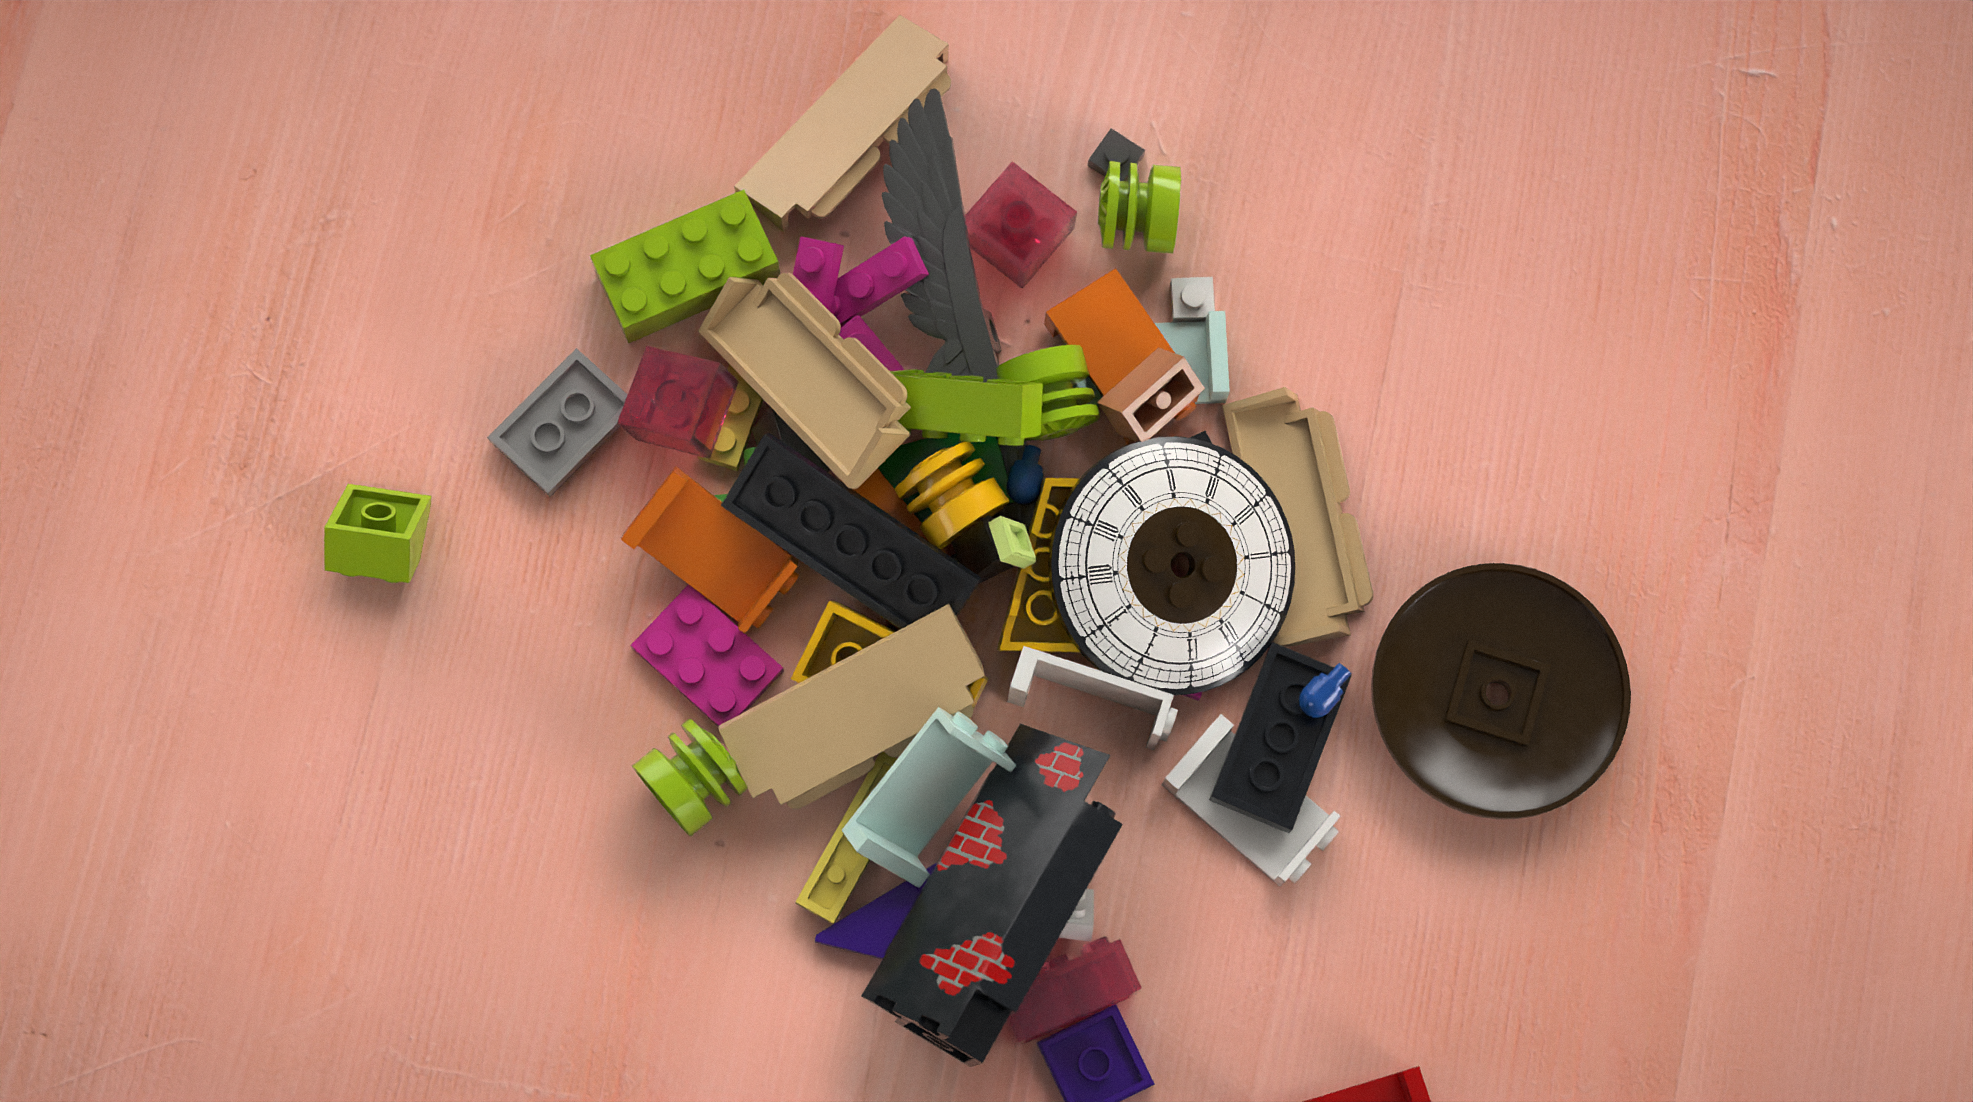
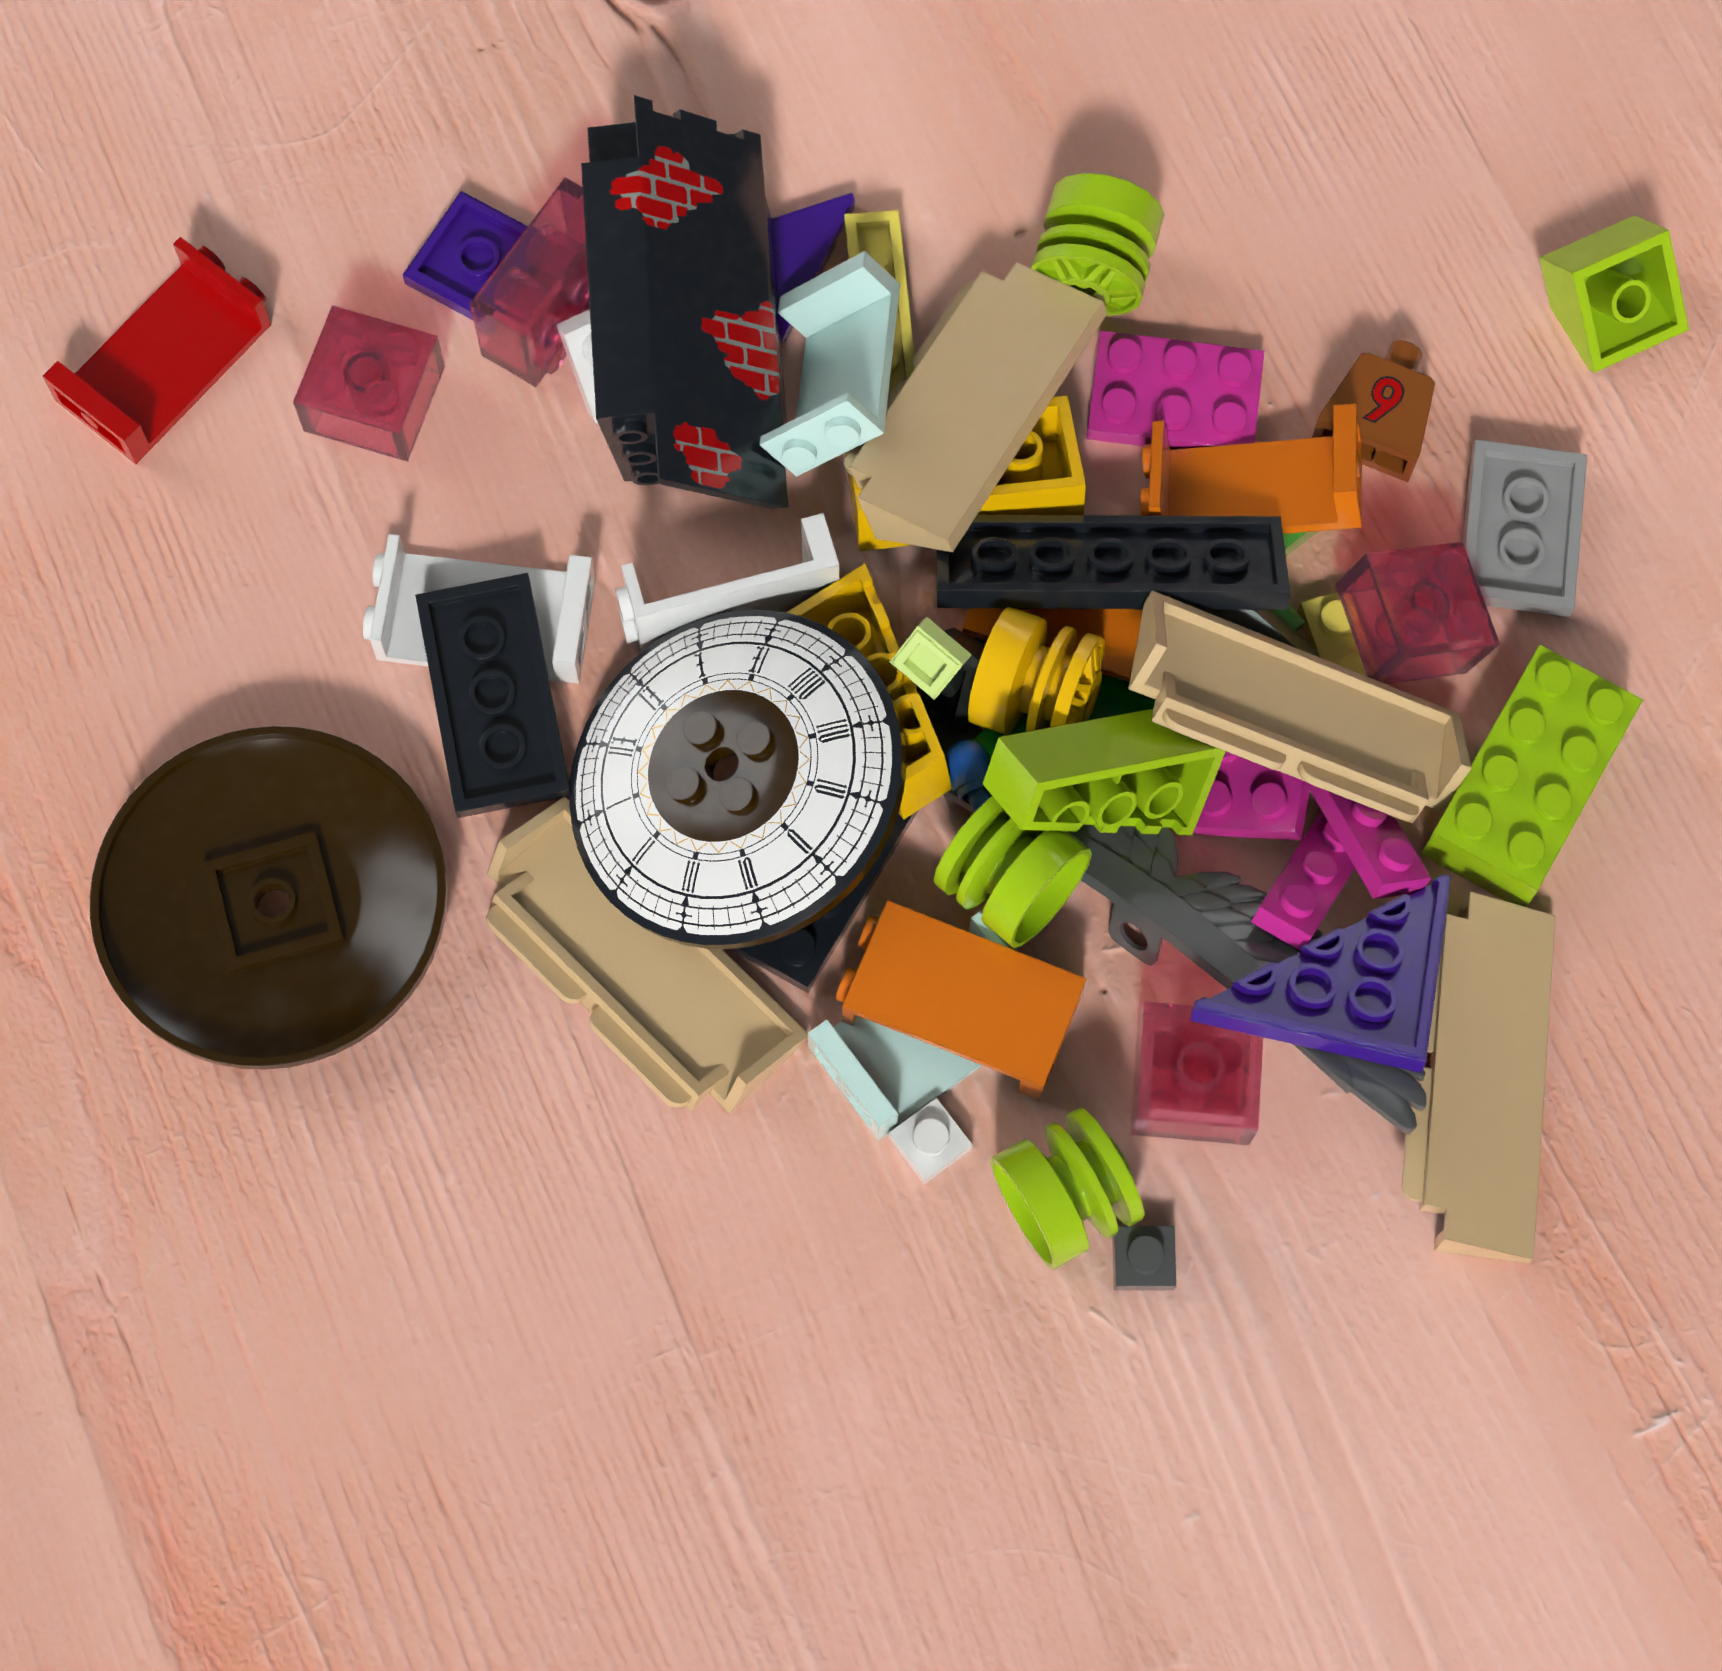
camera: 150 degrees right, 5 degrees down
(589, 553) = (1390, 406): none -> dark orange torso
(899, 192) = (1351, 990): none -> dark purple tile
(1151, 395) = (891, 933): nougat brick -> none
(1228, 1009) = (369, 383): none -> clear pink brick
(1323, 692) = (473, 761): blue cylinder -> none

